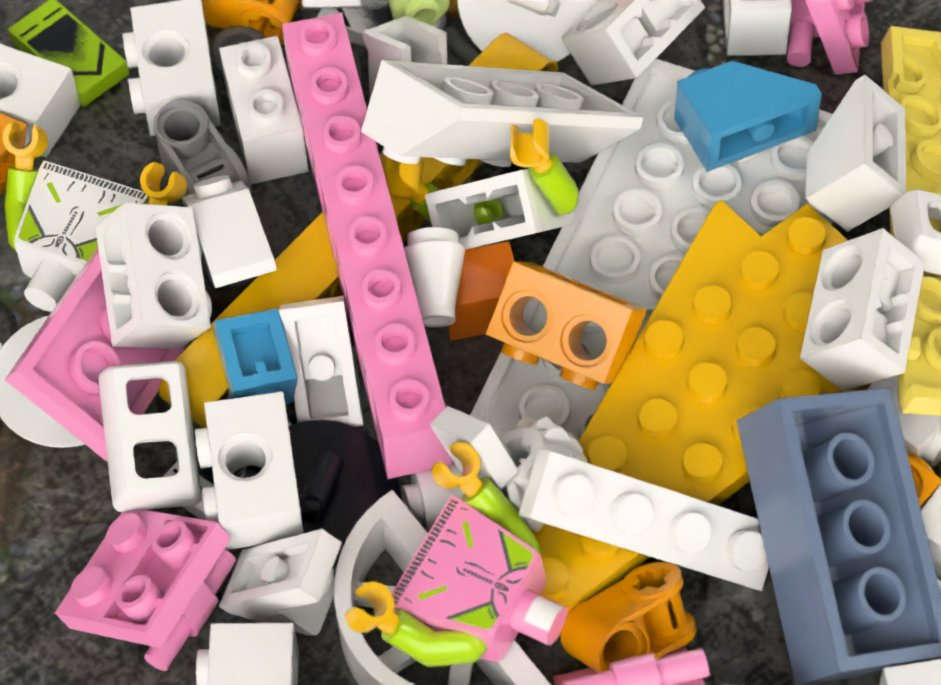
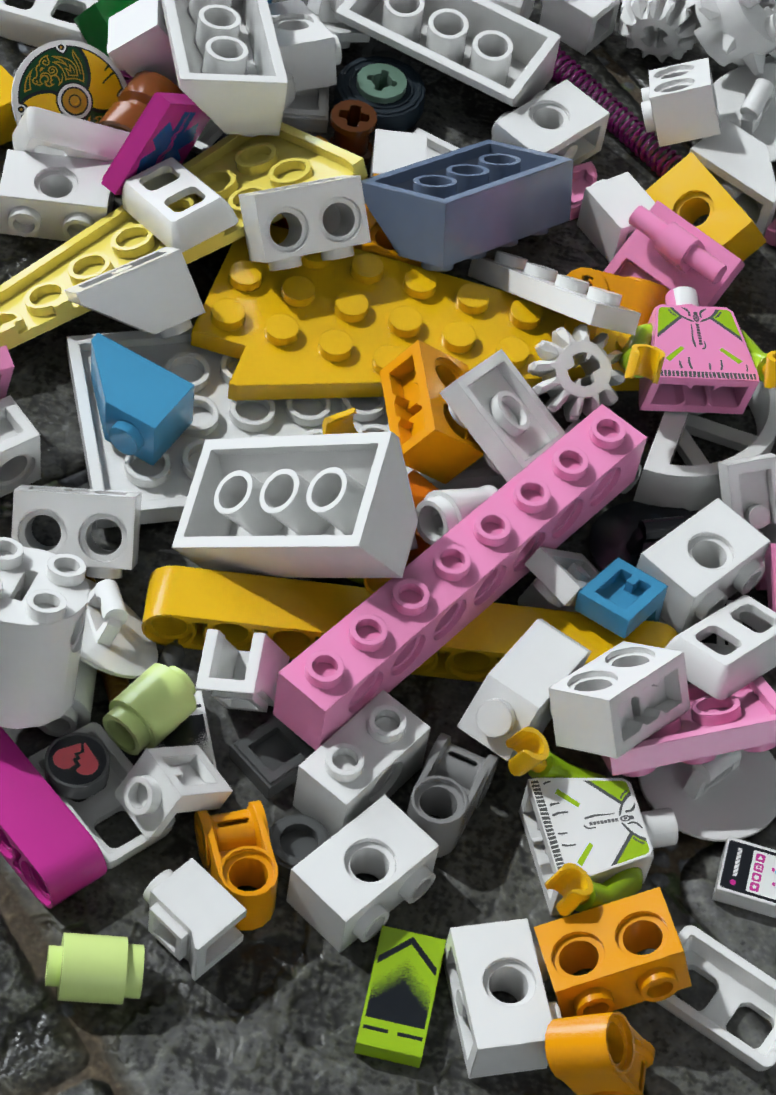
camera: 135 degrees left, 5 degrees down
(455, 426) = (610, 376): white tile -> none
(512, 360) = (502, 414): none -> white plate

